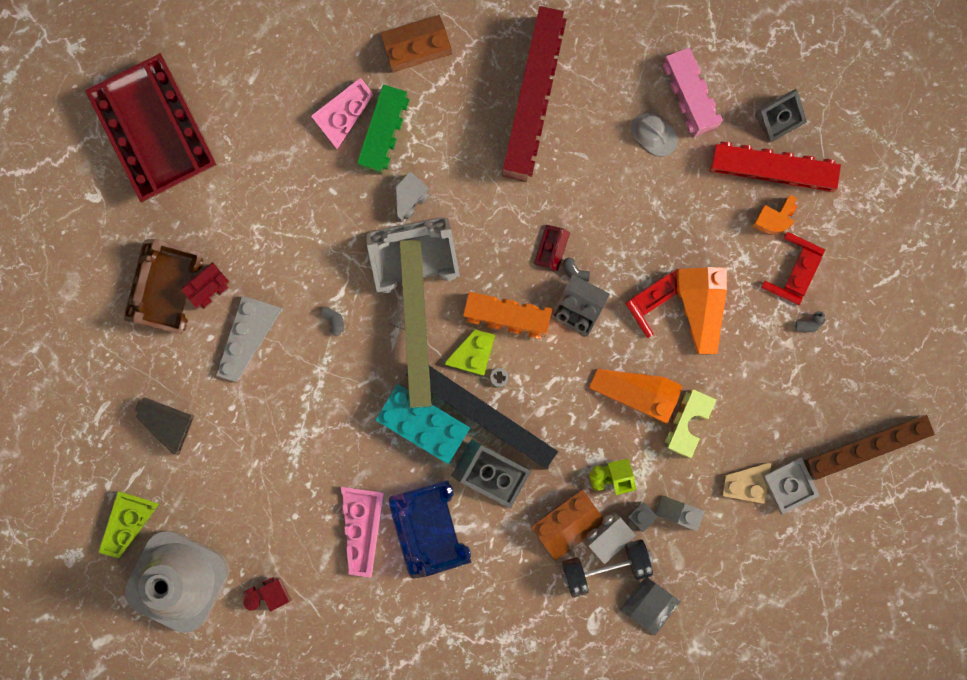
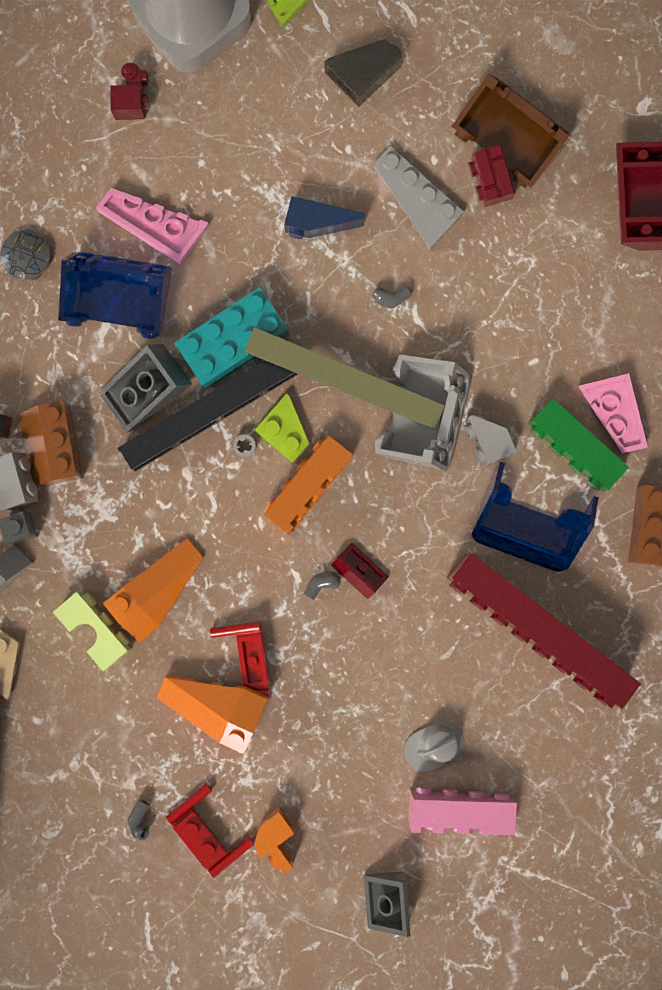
camera: 115 degrees right, 0 degrees up
(301, 407) = (316, 219): none -> dark blue slope
(431, 616) = (25, 255): none -> dark grey dish
(464, 135) = (529, 533): none -> clear blue windscreen
(580, 305) = (280, 571): dark grey slope -> none
(617, 474) = (78, 522): lime brick -> none
(775, 167) = (331, 867): red brick -> none

